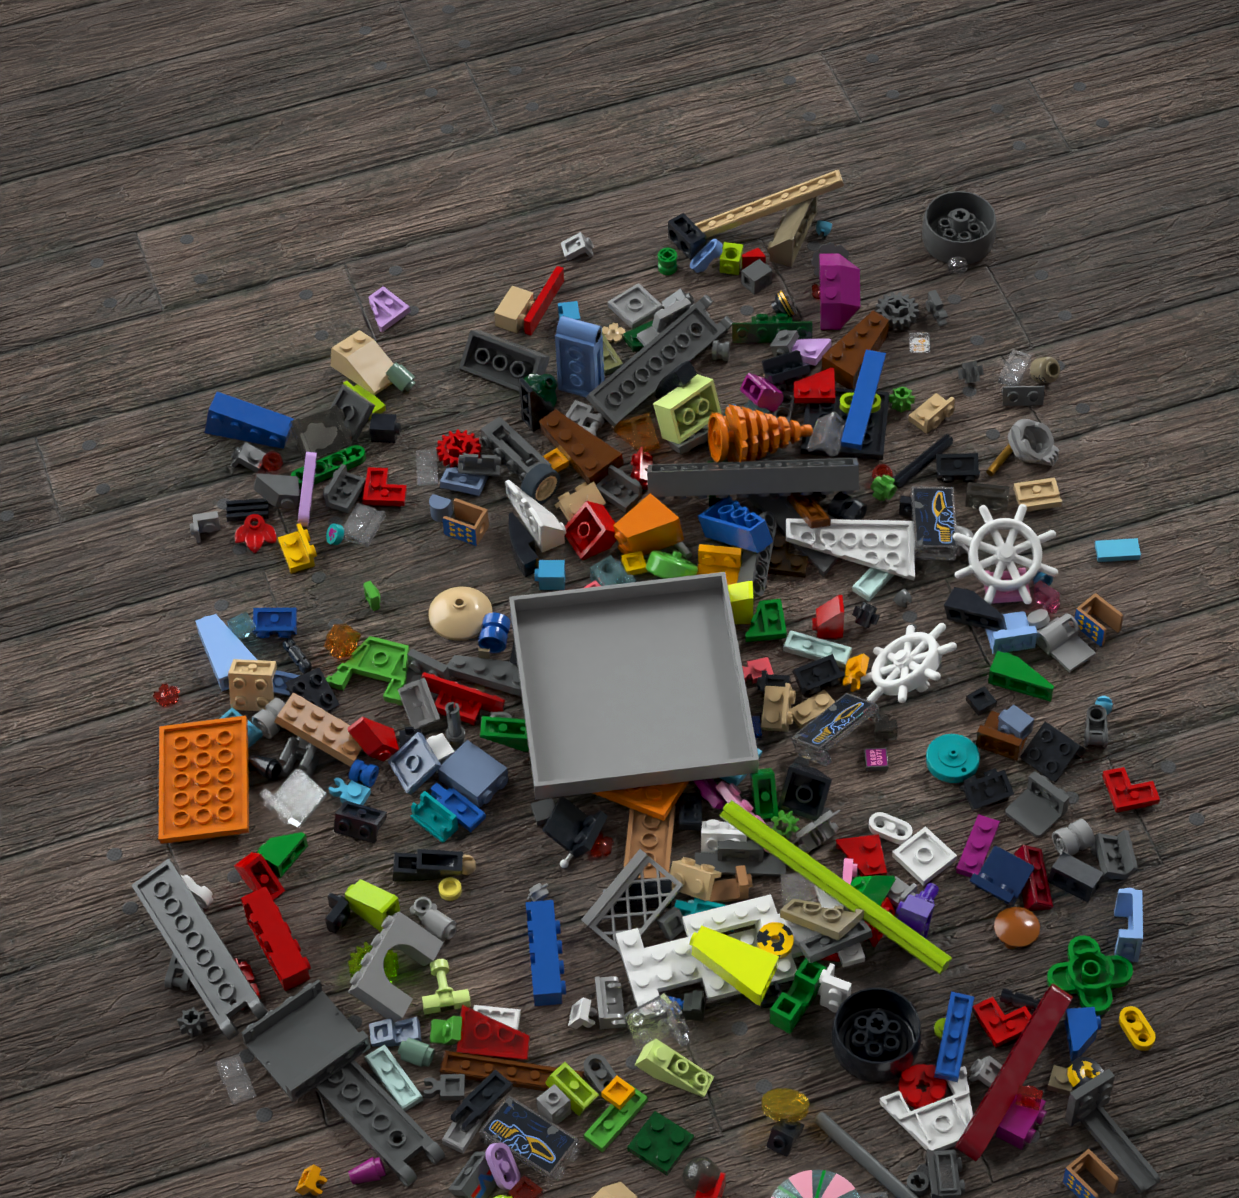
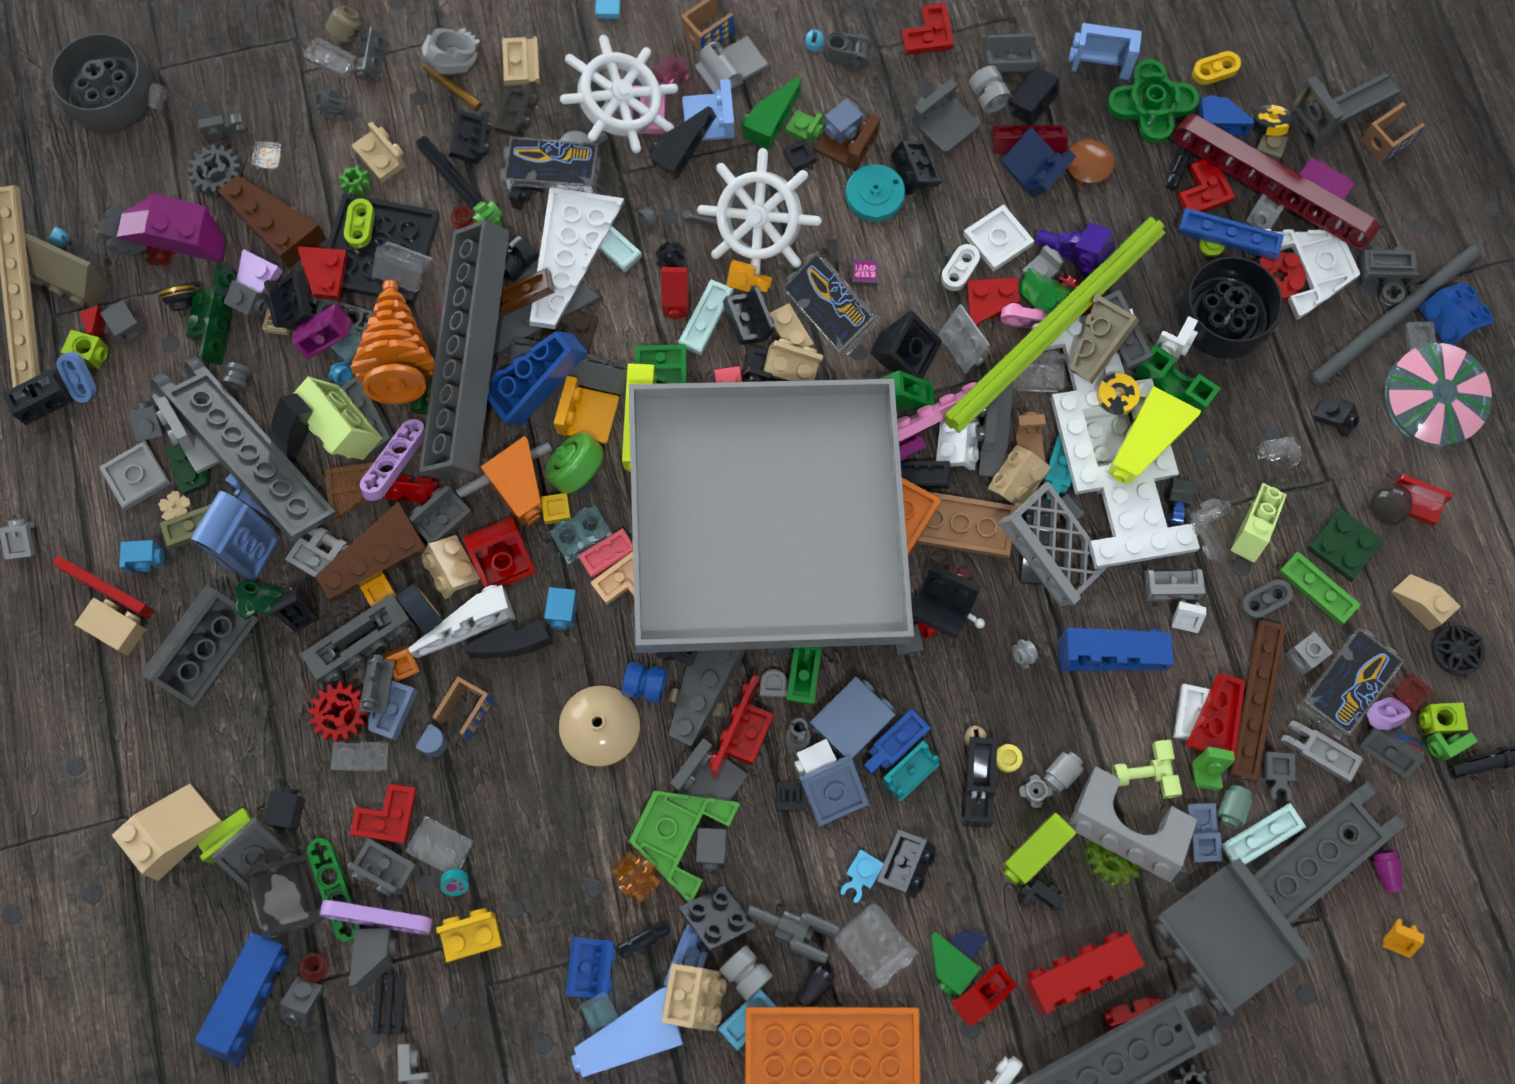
camera: 85 degrees left, 20 degrees up
(235, 1079) = (1268, 1028): clear slope -> none
(255, 535) = (438, 993): red plate -> none
(299, 868) = (968, 942): none -> clear blue tile
(318, 728) = (781, 906): medium nougat plate -> none
(365, 773) = (838, 856): blue wheel -> none
(366, 689) = (711, 848): none -> dark grey brick
(372, 595) = (563, 835): bright green tile -> none
(374, 738) = (799, 836): red slope -> none
(387, 308) = (68, 799): lavender wing -> none
(401, 377) = (201, 783): sand green brick -> none
(418, 704) = (748, 780): light grey hinge -> none
(482, 1099) = (1309, 730): black hinge -> none
(498, 485) = (405, 663): none -> orange slope
(574, 1087) = (1286, 631): lime slope -> none
(618, 1092) = (1300, 579): light orange plate -> none
(661, 448) = (388, 457): none -> lavender beam
(667, 261) = (71, 427): green wheel -> none
(745, 1087) = (1280, 448): none -> clear bracket
(785, 818) = (951, 373): bright green gear -> none
(785, 1104) = (1308, 409): clear yellow tile -> none
(863, 399) = (360, 215): blue tile -> none
(977, 846) = (986, 185): magenta plate -> none
(1011, 697) = (805, 127): none -> bright green bracket
(1029, 1097) = (1317, 165): clear red plate -> none
(1038, 618) = (696, 83): light grey tile -> none
(1051, 751) = (874, 92): black bracket -> none

